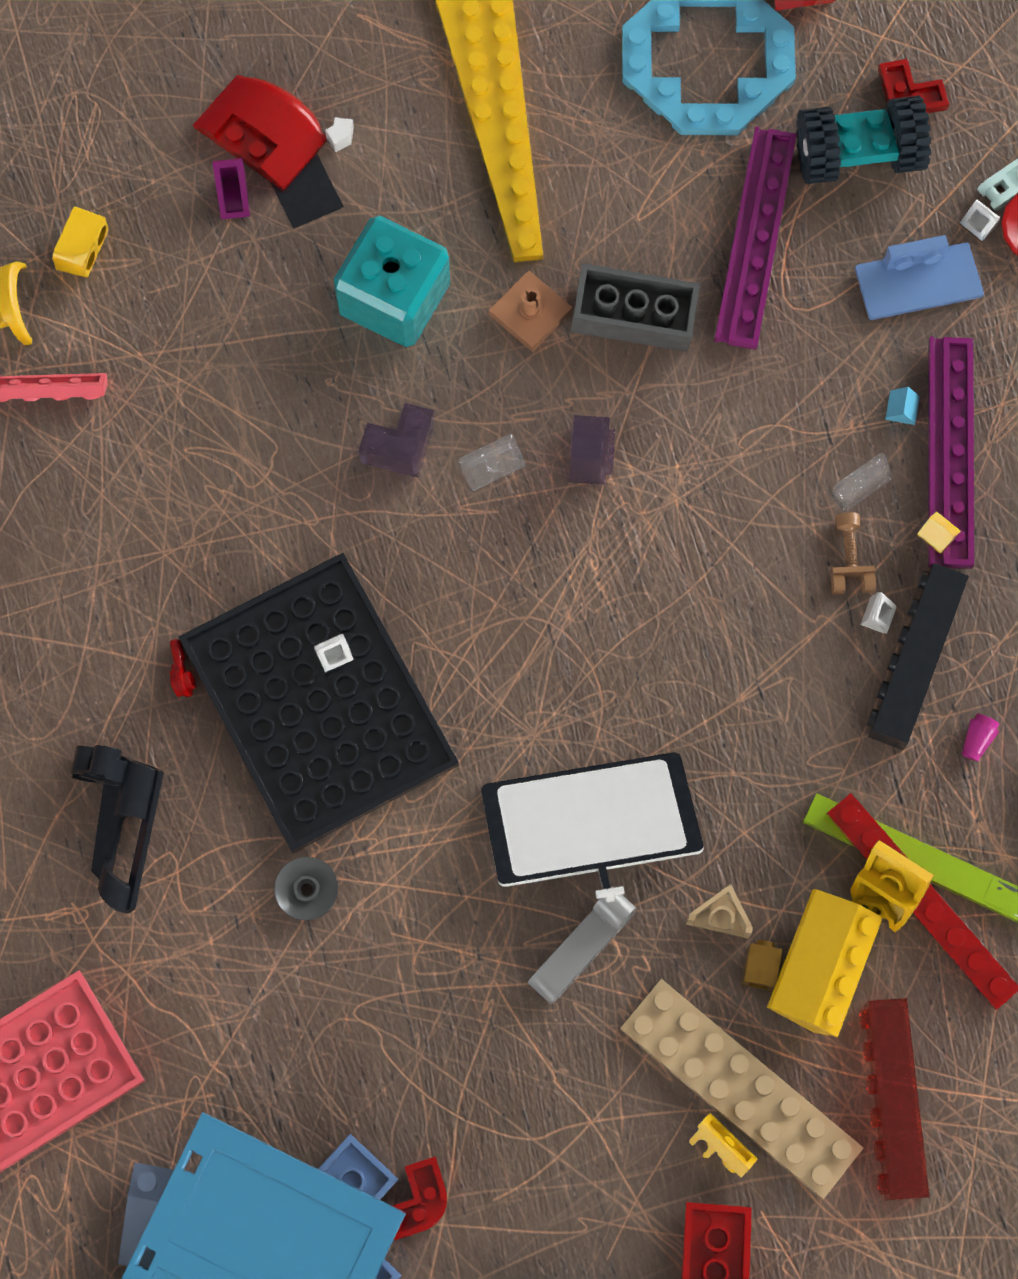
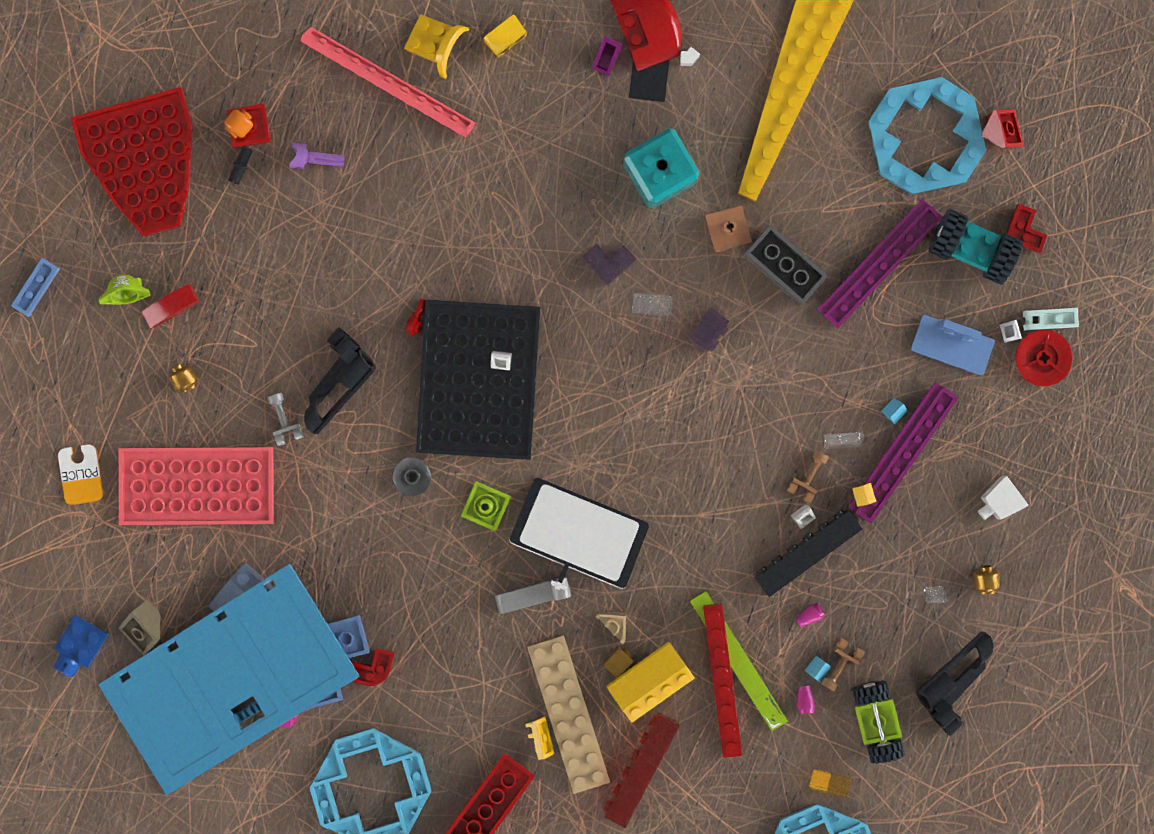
camera: 35 degrees right, 15 degrees up
(47, 901) = (276, 400): none -> light grey bar
(436, 865) = (485, 506): none -> lime plate
(890, 885) = (709, 665): yellow plate -> none

